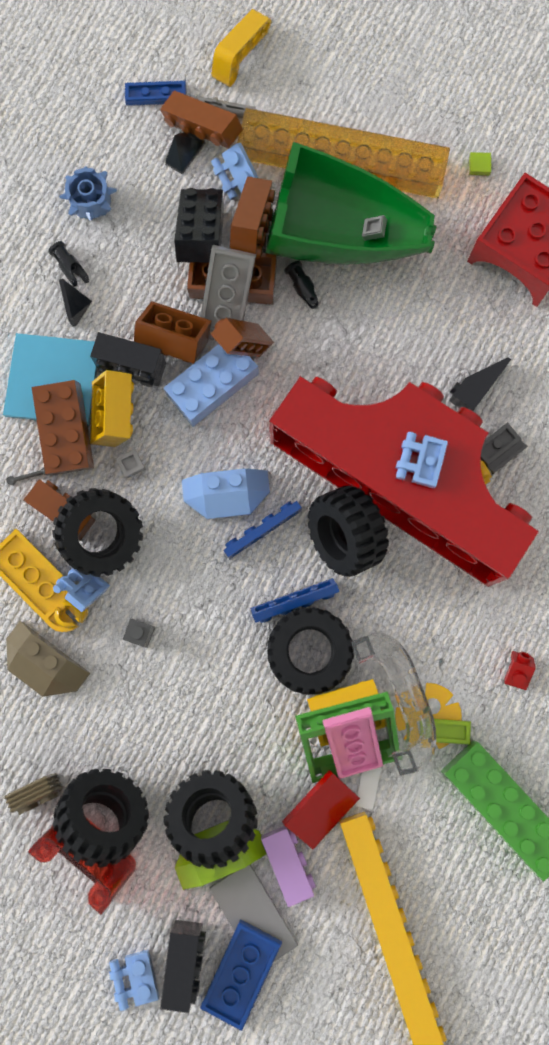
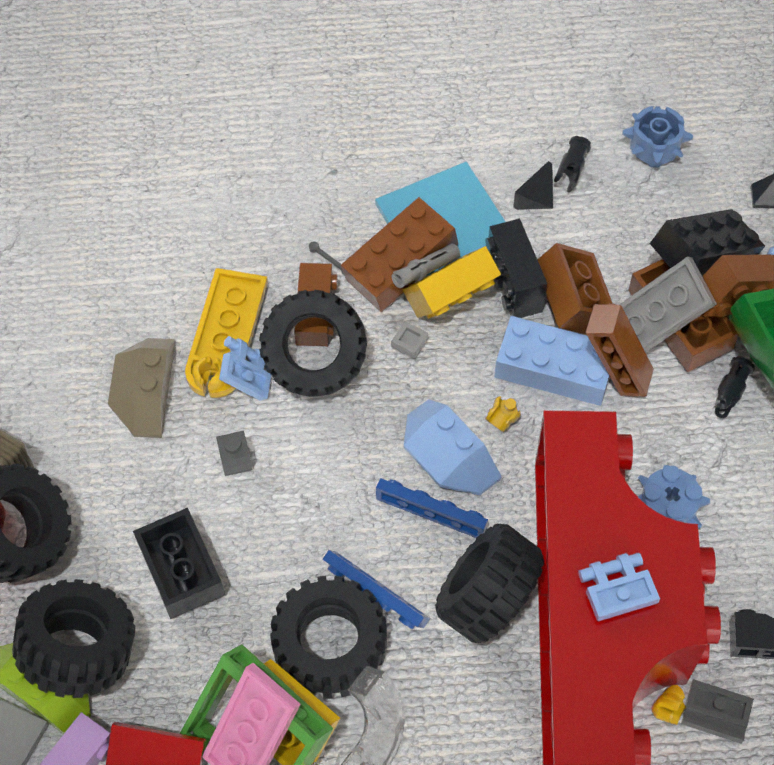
camera: 55 degrees right, 20 degrees down
(89, 438) = (420, 268): none -> light grey pin
(196, 717) = (179, 563): none -> black brick
(226, 439) = (503, 413): none -> yellow arm
(359, 368) = (673, 486): none -> medium blue brick

